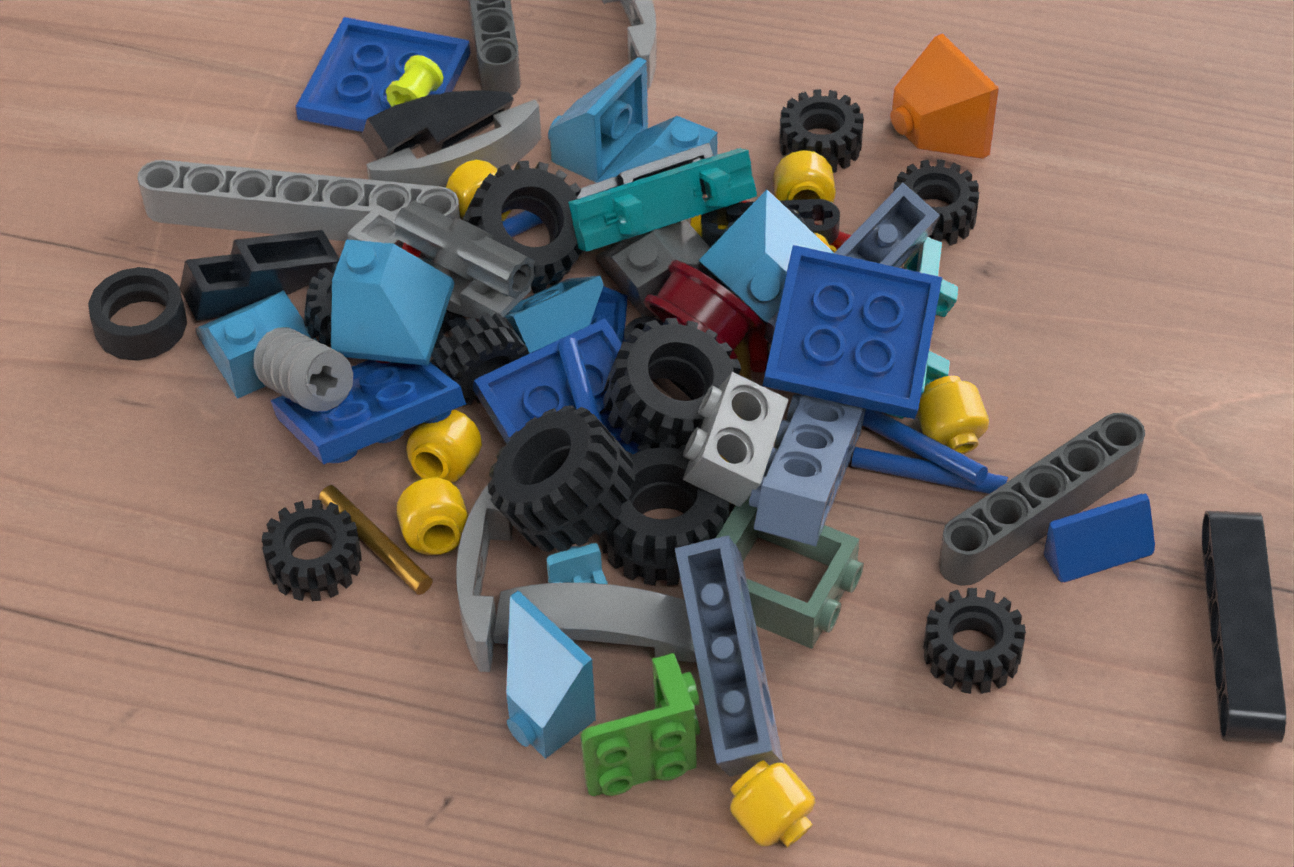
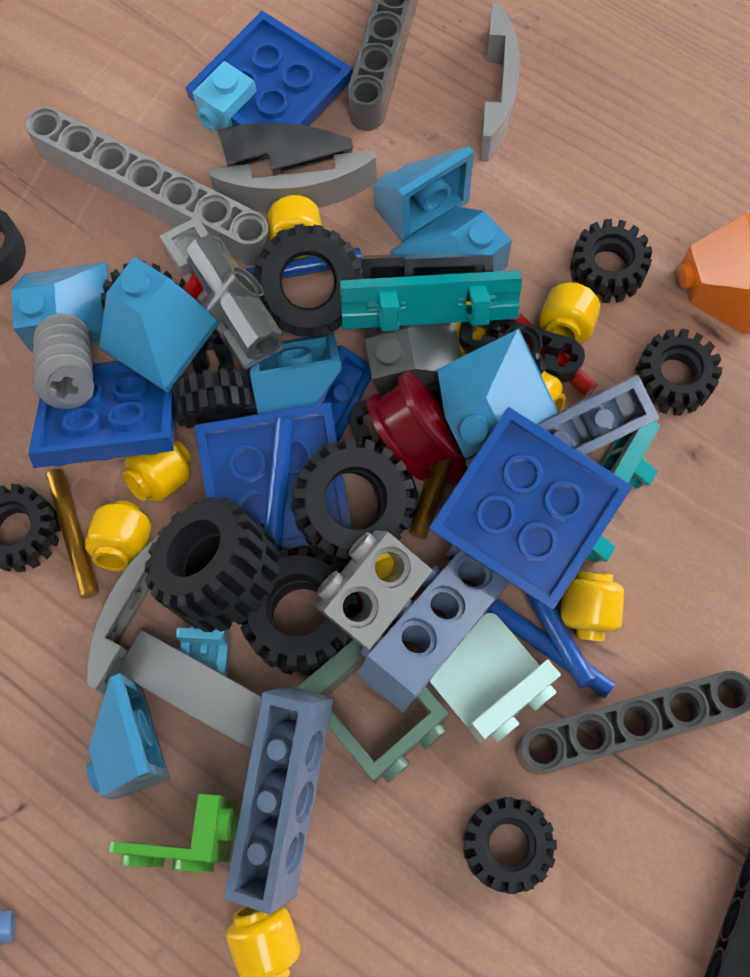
camera: 25 degrees right, 20 degrees up
(254, 271) = (90, 239): black slope -> none
(342, 104) = (222, 96): none -> medium azure bracket
(418, 80) = (282, 101): neon yellow bush -> none
(891, 510) = (493, 680): none -> light aqua bracket
(1100, 538) = (668, 786): blue slope -> none

